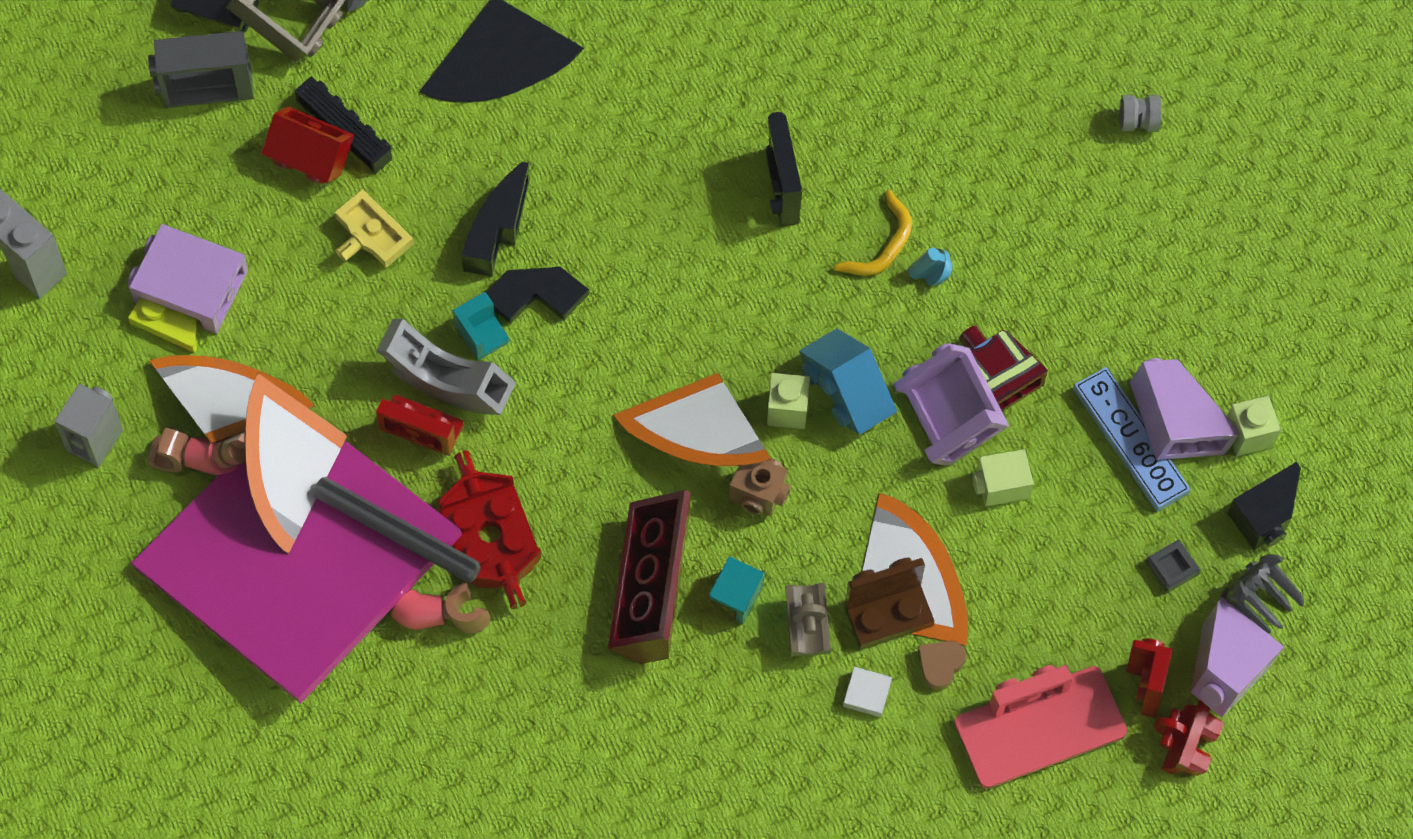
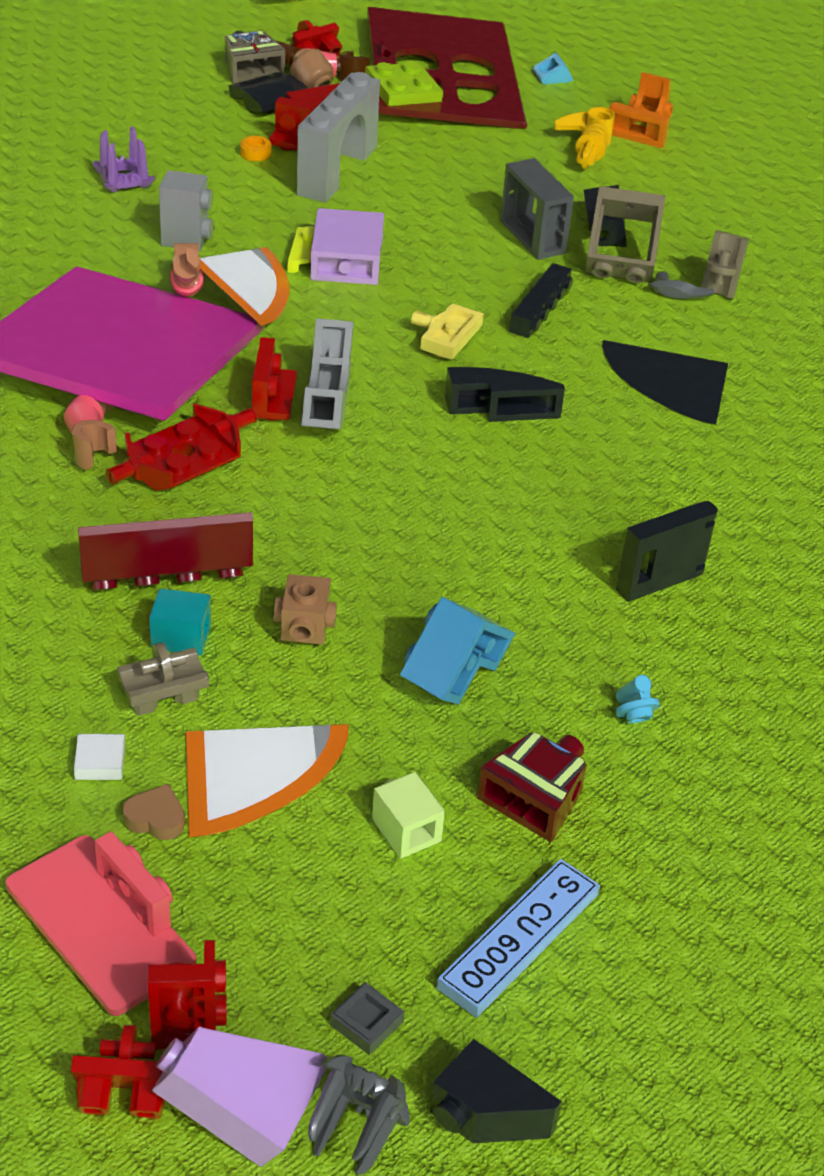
camera: 70 degrees right, 25 degrees down
(285, 458) = (190, 296): sticker -> none
(307, 145) = (504, 275): red brick -> none
(397, 529) = (146, 372): dark grey axle -> none
(479, 326) = (389, 404): teal panel -> none
(550, 285) = (454, 443): black tile -> none
(696, 425) = (349, 555): sticker -> none
(788, 400) = (407, 611): yellowish green brick -> none
(887, 603) = (210, 742): reddish brown bracket -> none
(891, 250) = (631, 670): yellow animal -> none
(952, 403) = (499, 725): lavender panel -> none
(1179, 412) = (568, 963): lavender slope -> none
(1256, 425) = (594, 1050): yellowish green brick -> none

